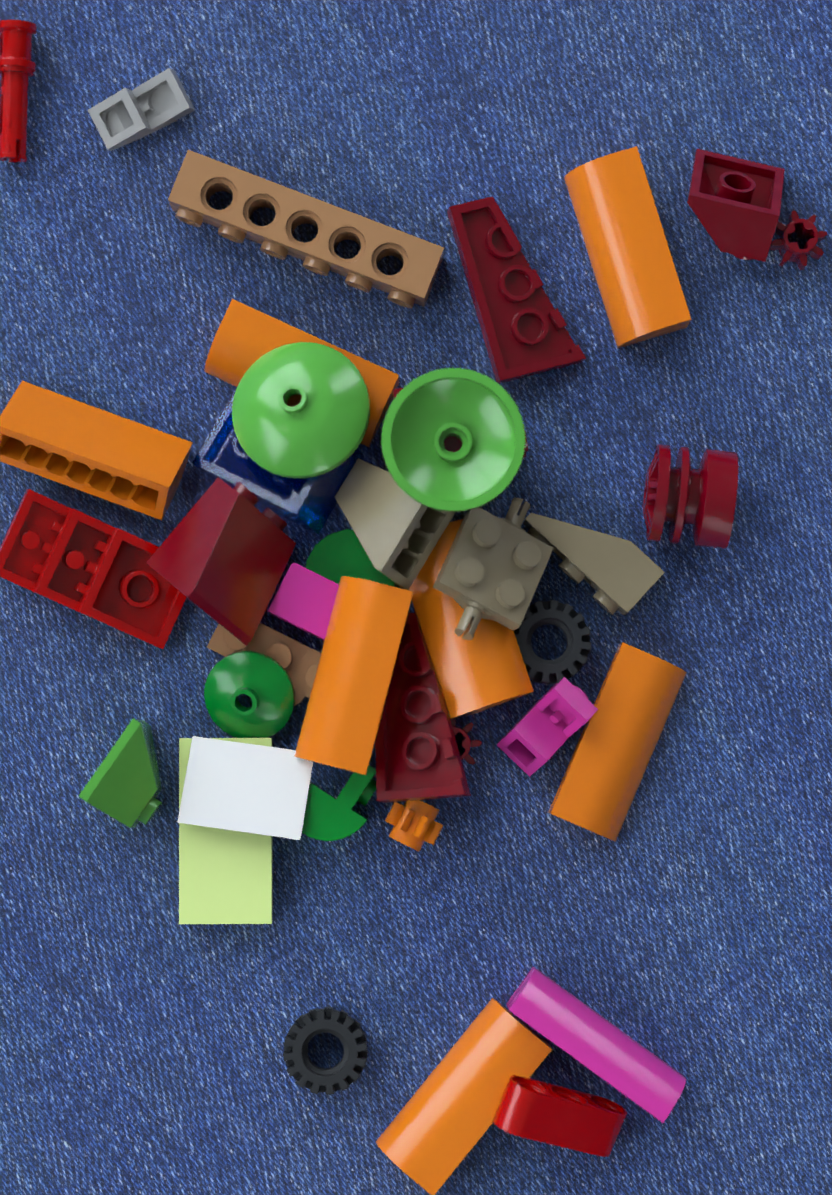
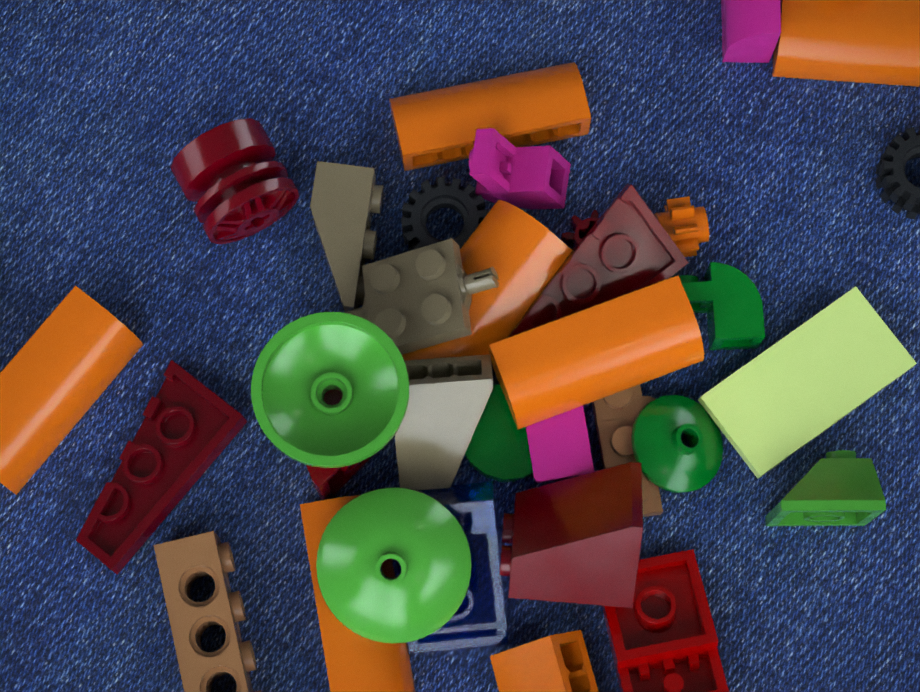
camera: 125 degrees left, 10 degrees down
(245, 788) = (762, 384): white sticker -> none

